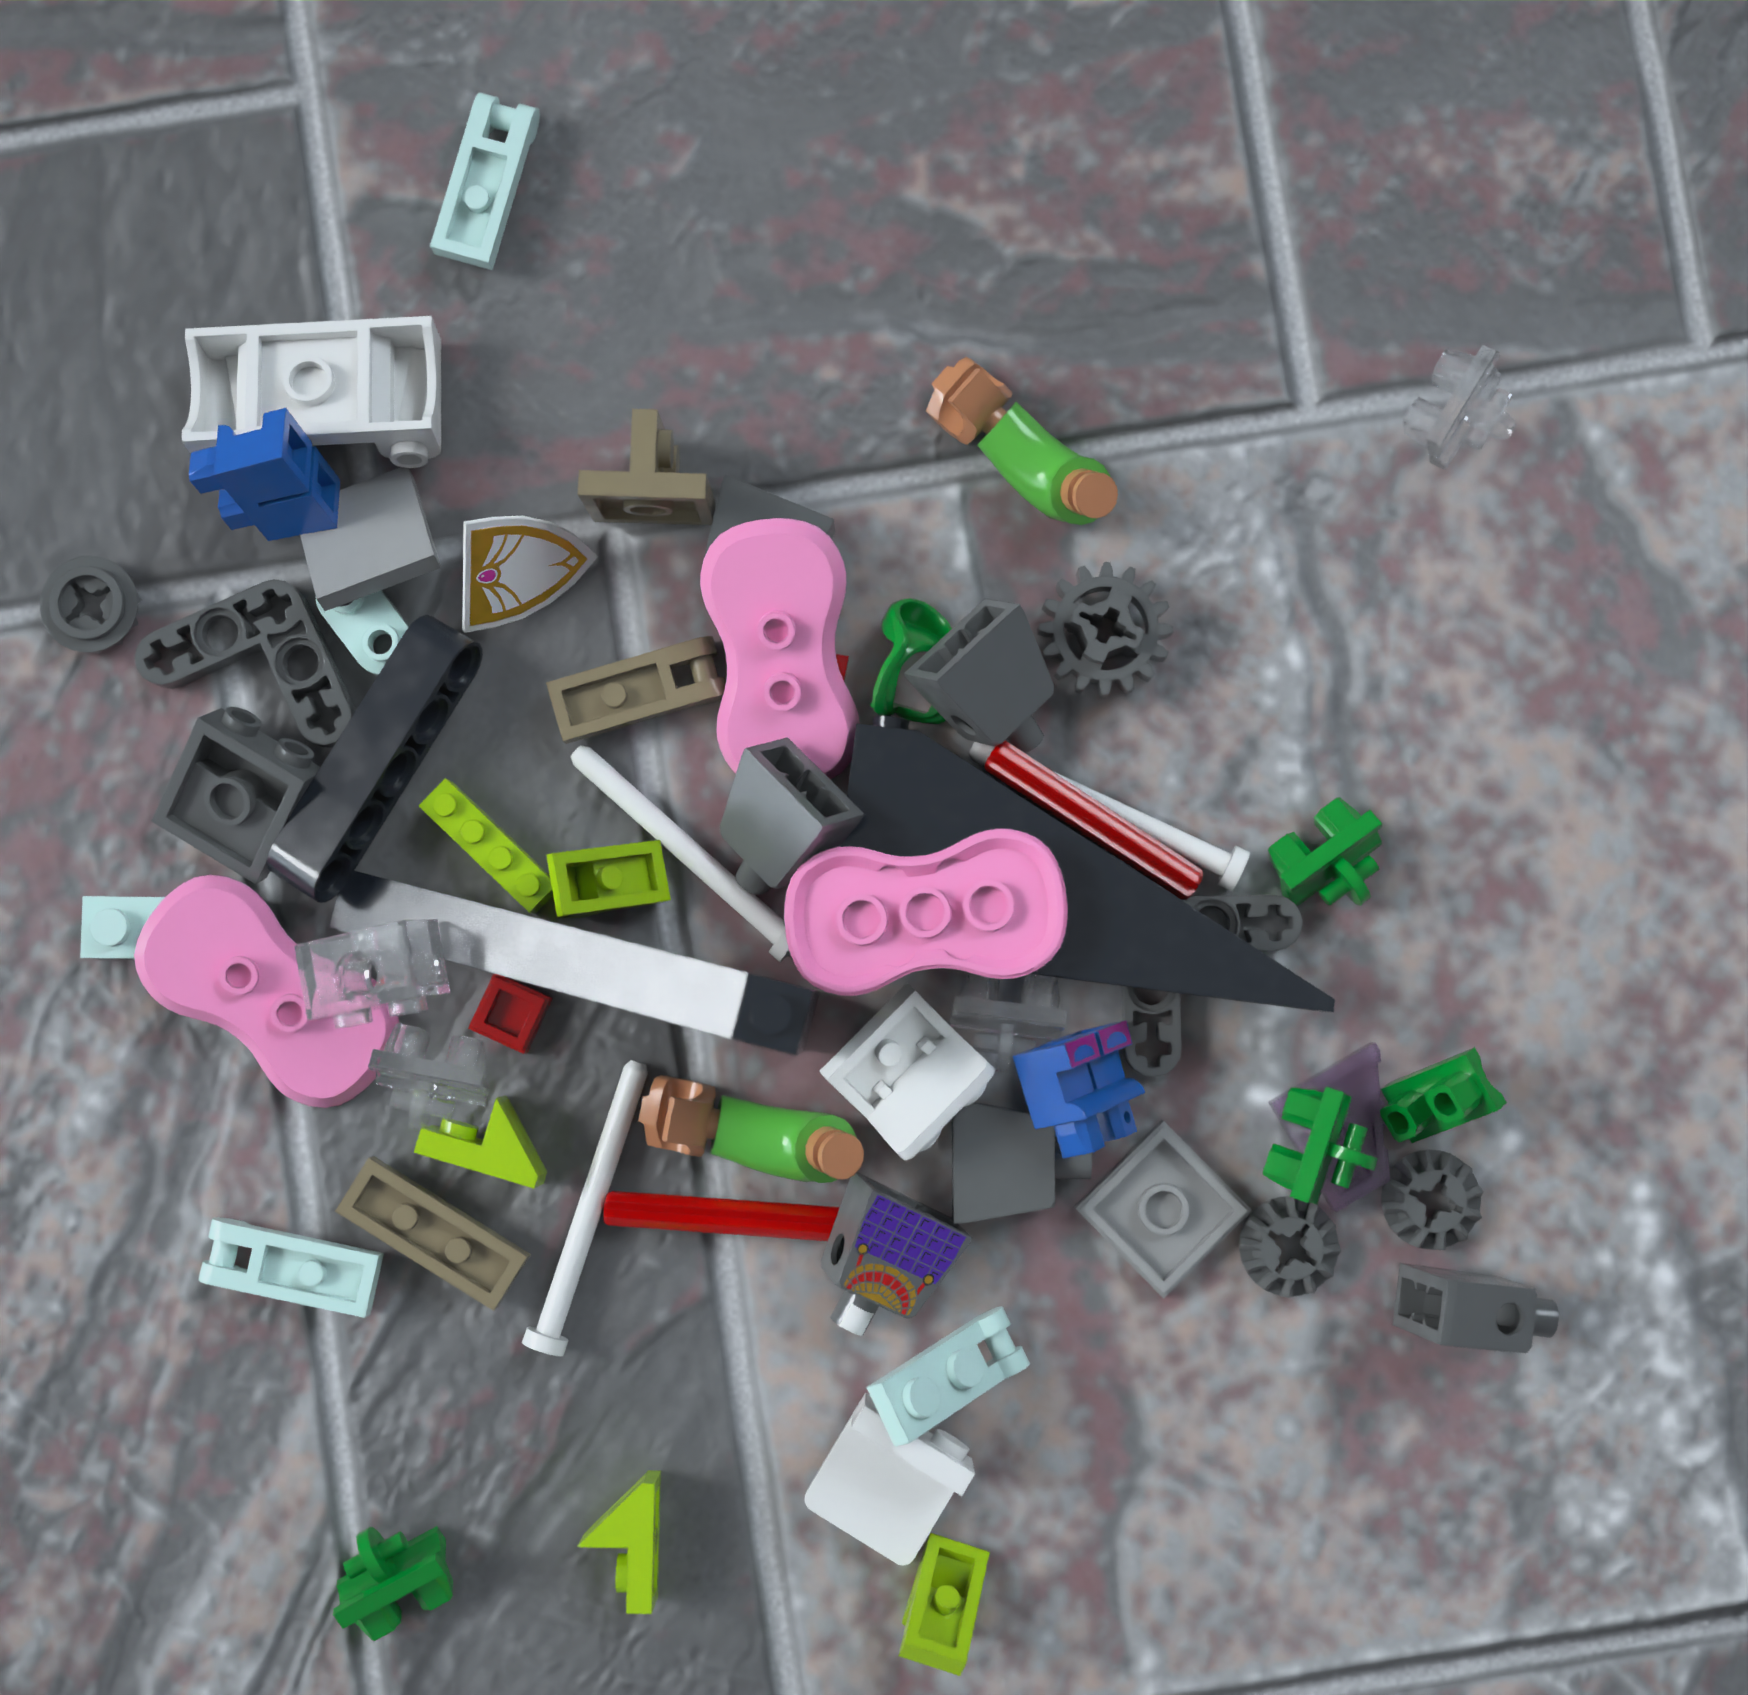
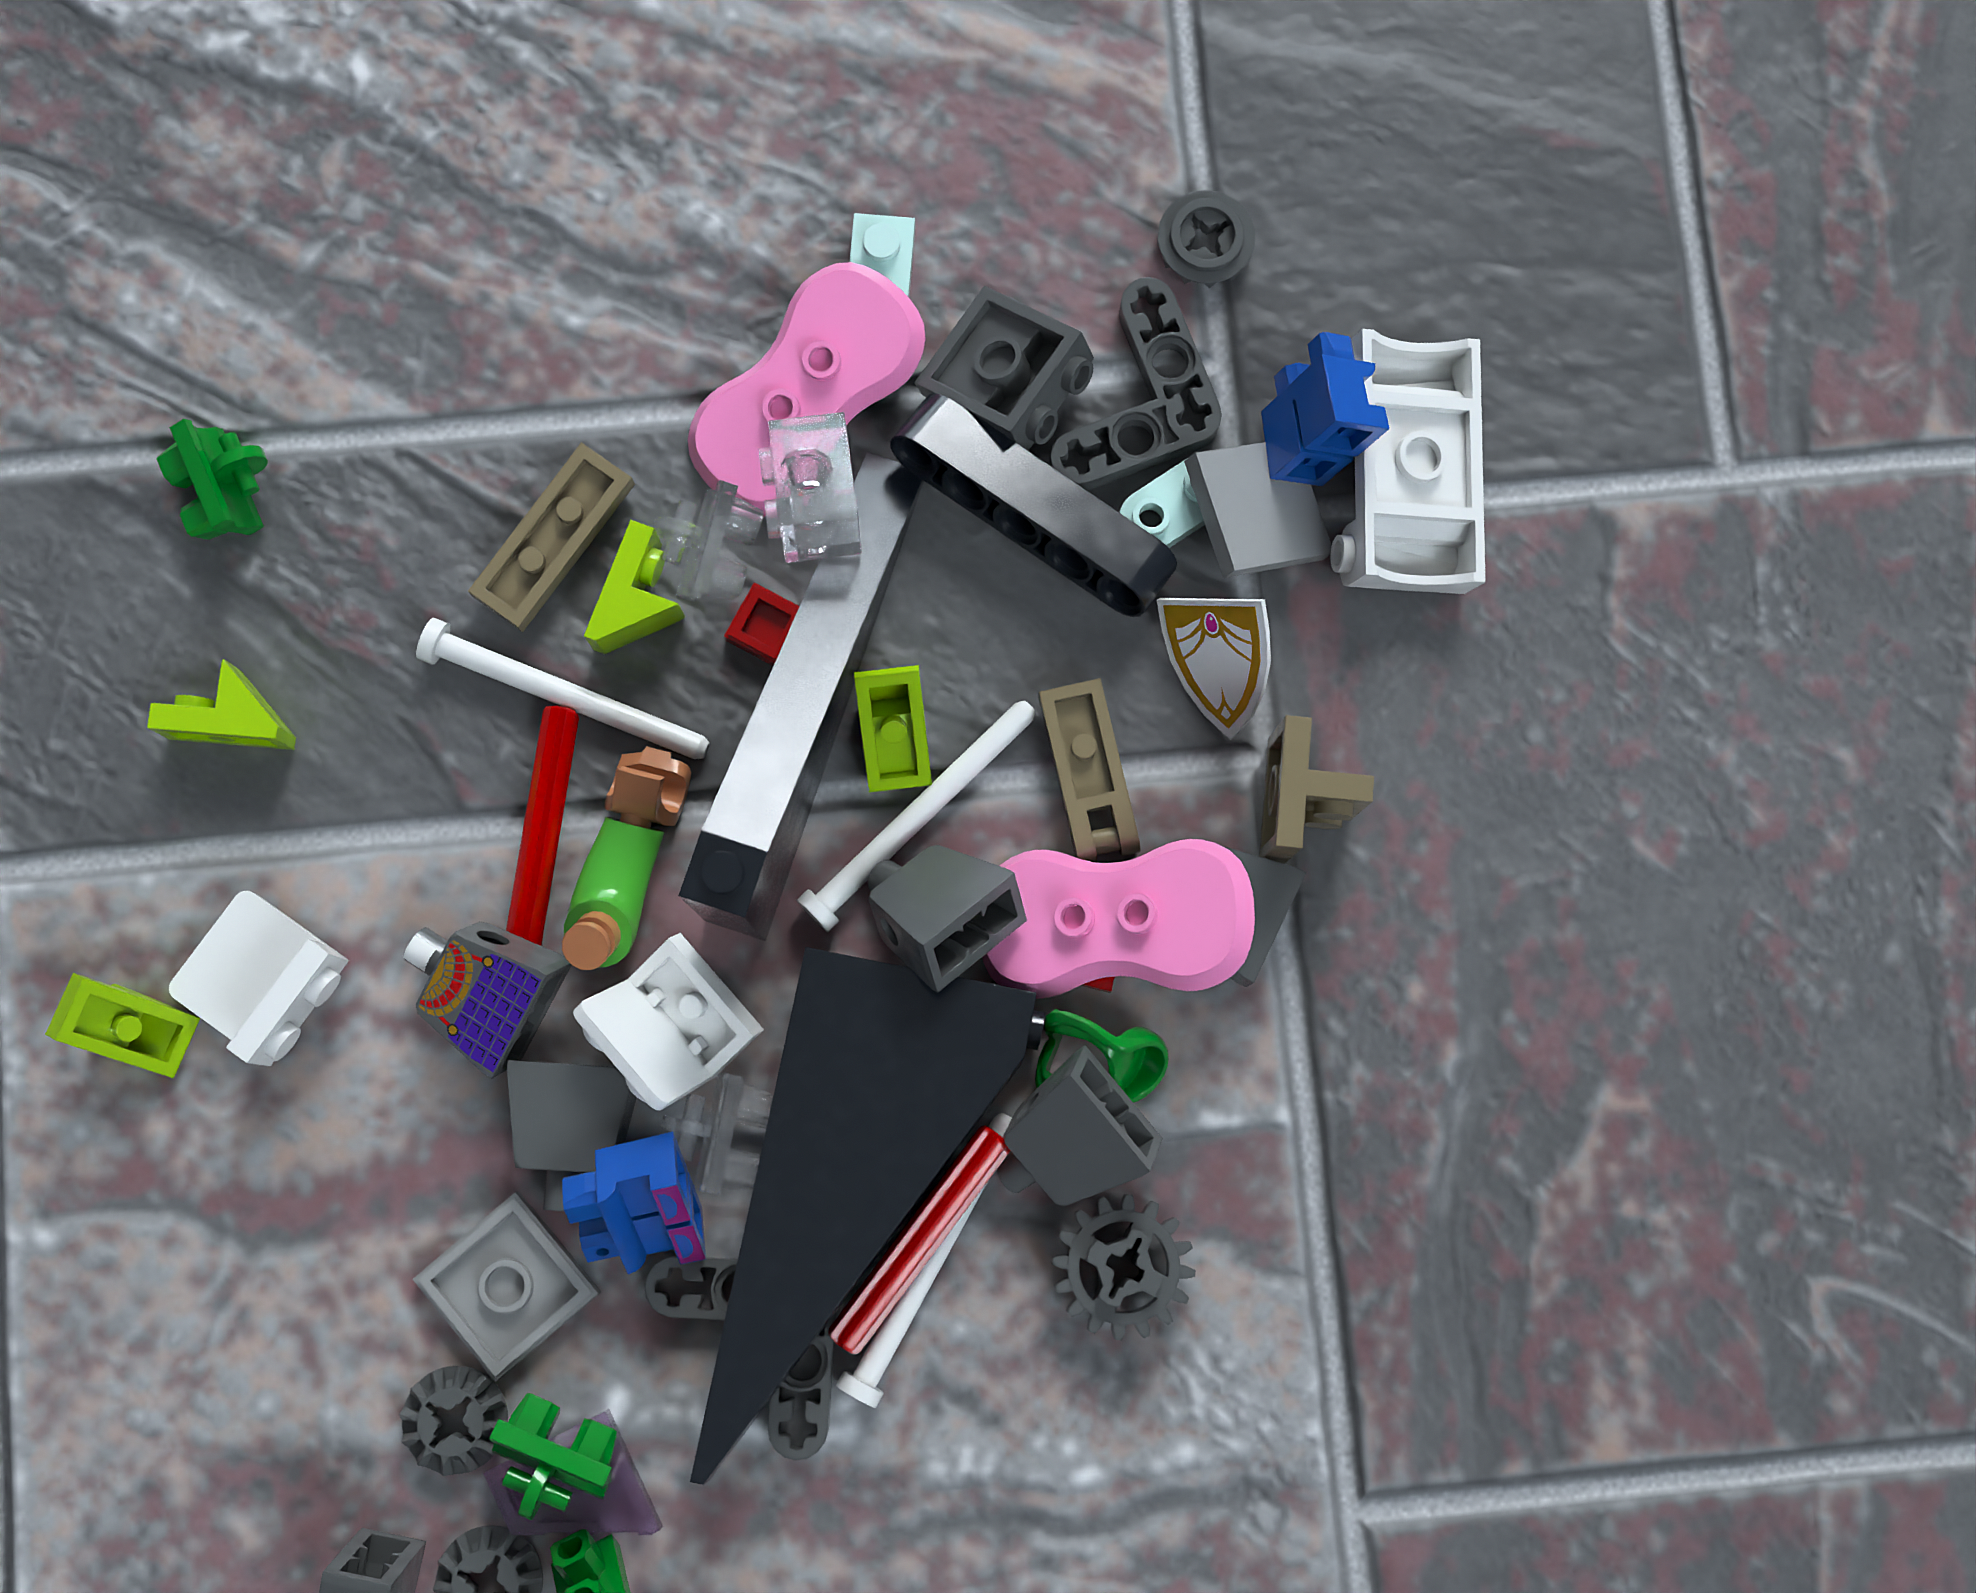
camera: 85 degrees right, 5 degrees down
(293, 1268) = (530, 400): light aqua plate -> none
(484, 182) = (1628, 646): light aqua plate -> none
(488, 845) = (939, 611): lime piece -> none
(946, 1377) = (351, 1042): light aqua plate -> none
(975, 908) = (830, 1101): bright pink plate -> none
(1024, 453) = (1324, 1188): piece -> none
(1348, 841) = (878, 1518): green hips -> none

